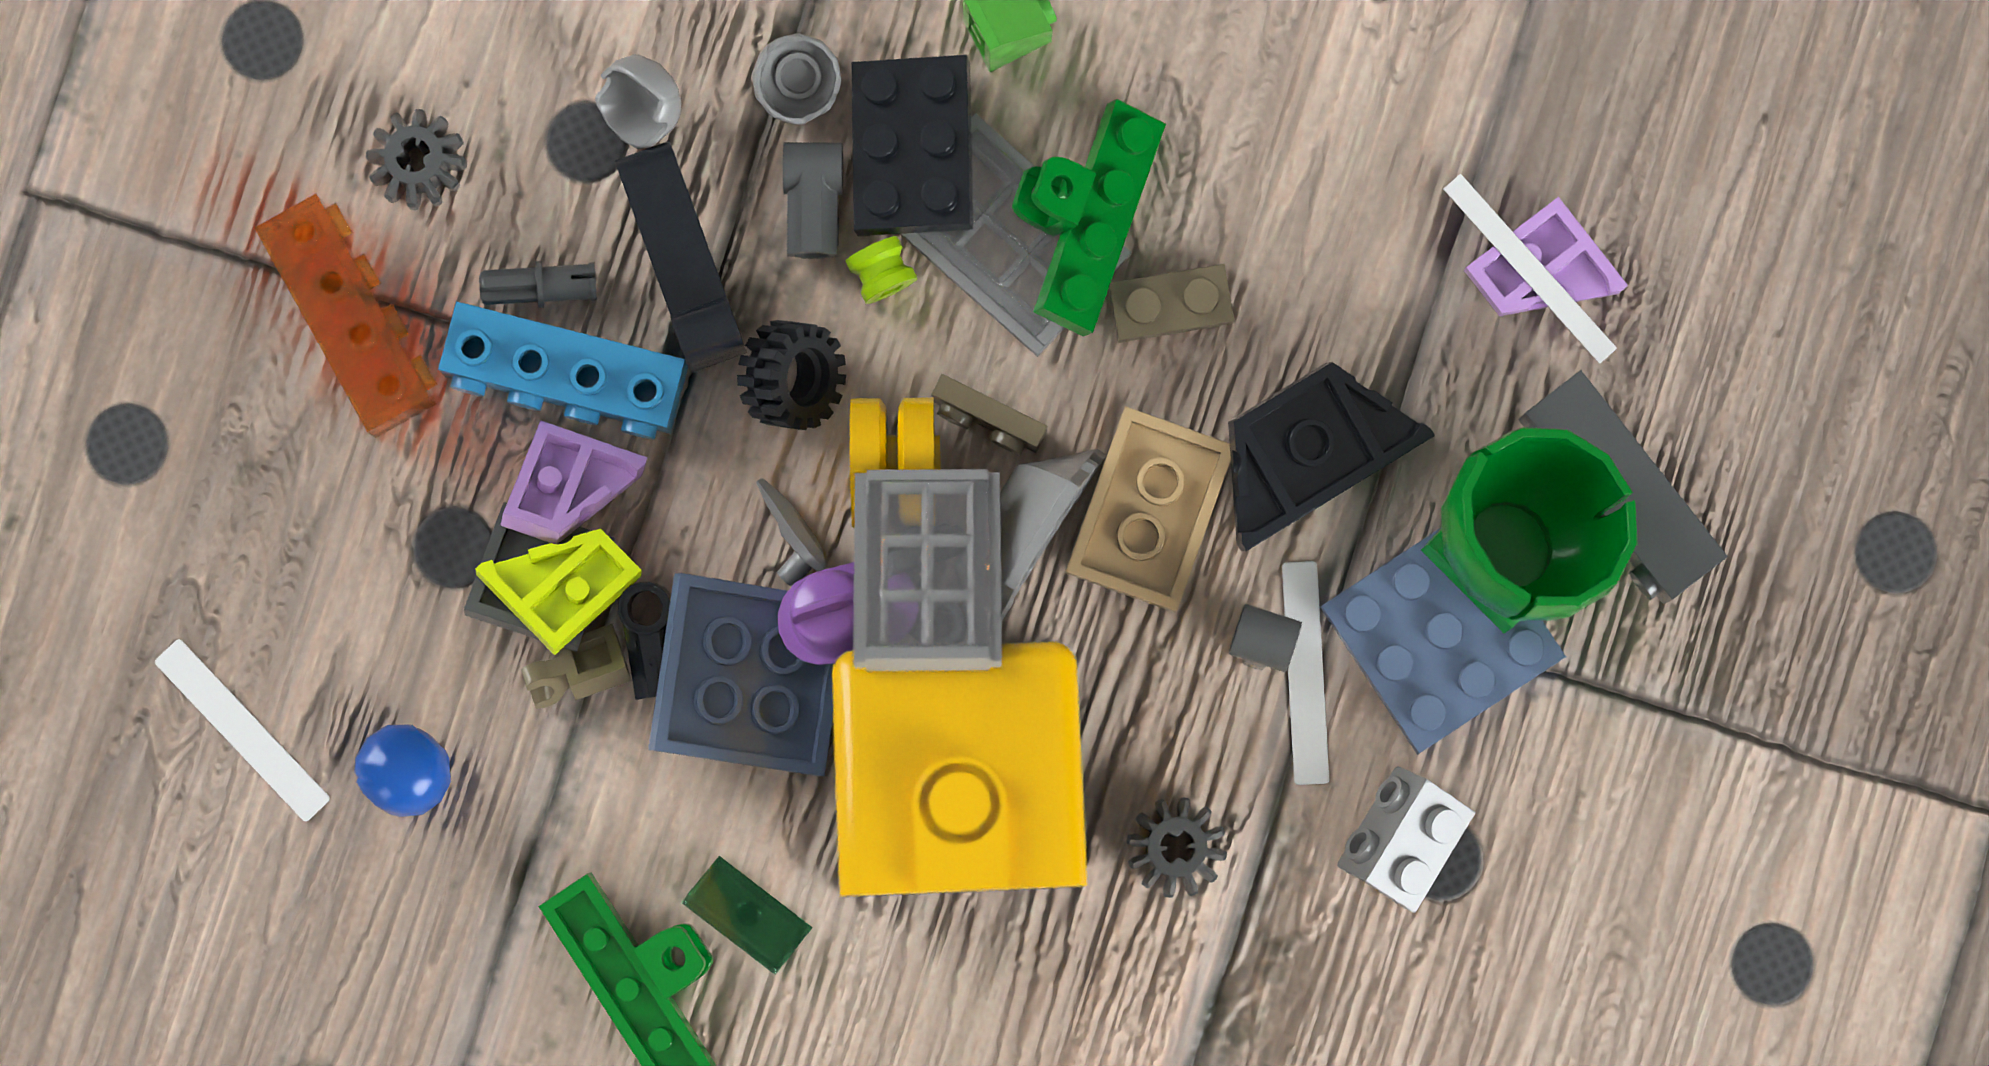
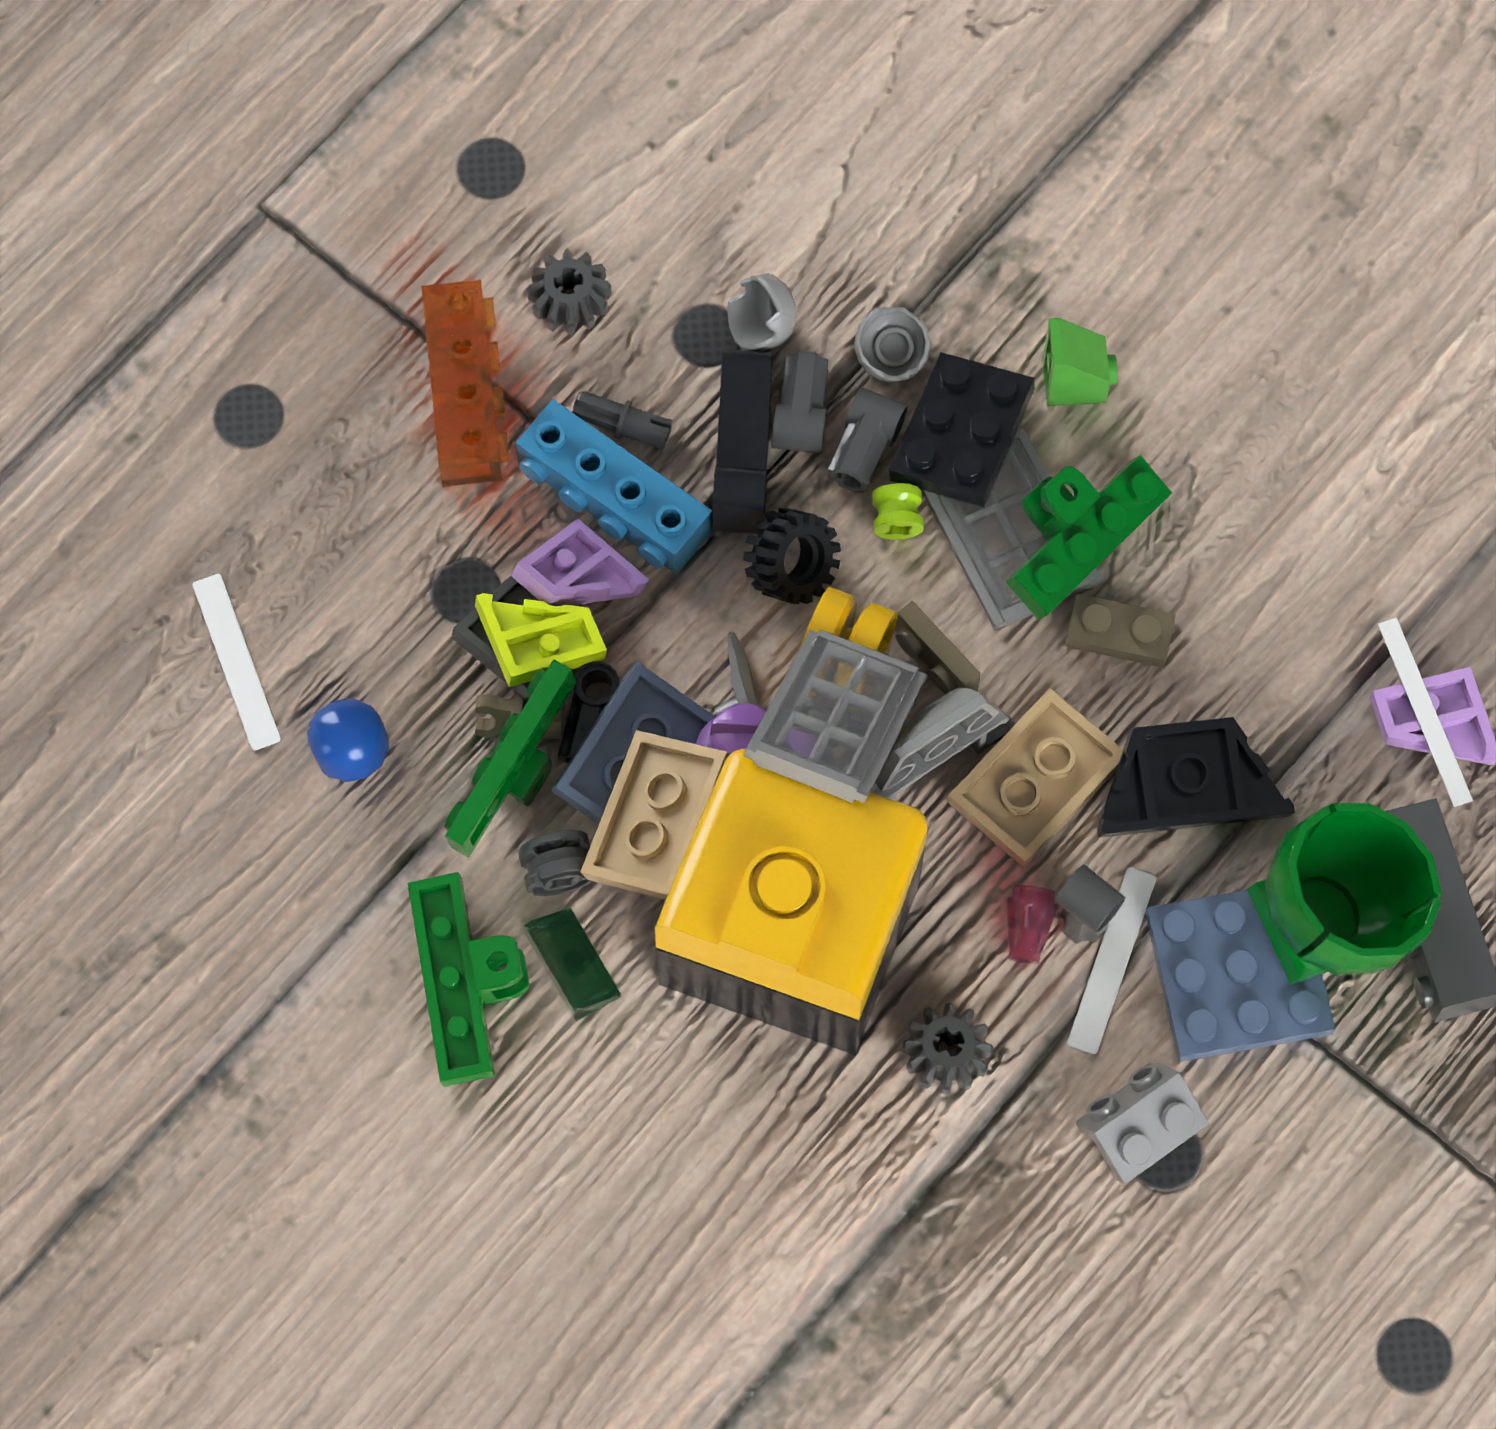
camera: 25 degrees right, 15 degrees down
(594, 736) = (515, 763): none -> green plate
(690, 826) = (555, 862): none -> dark grey wheel
(729, 199) = (801, 415): none -> dark grey piece
(775, 738) = (652, 814): none -> tan plate
(1206, 673) = (1029, 922): none -> clear pink cone

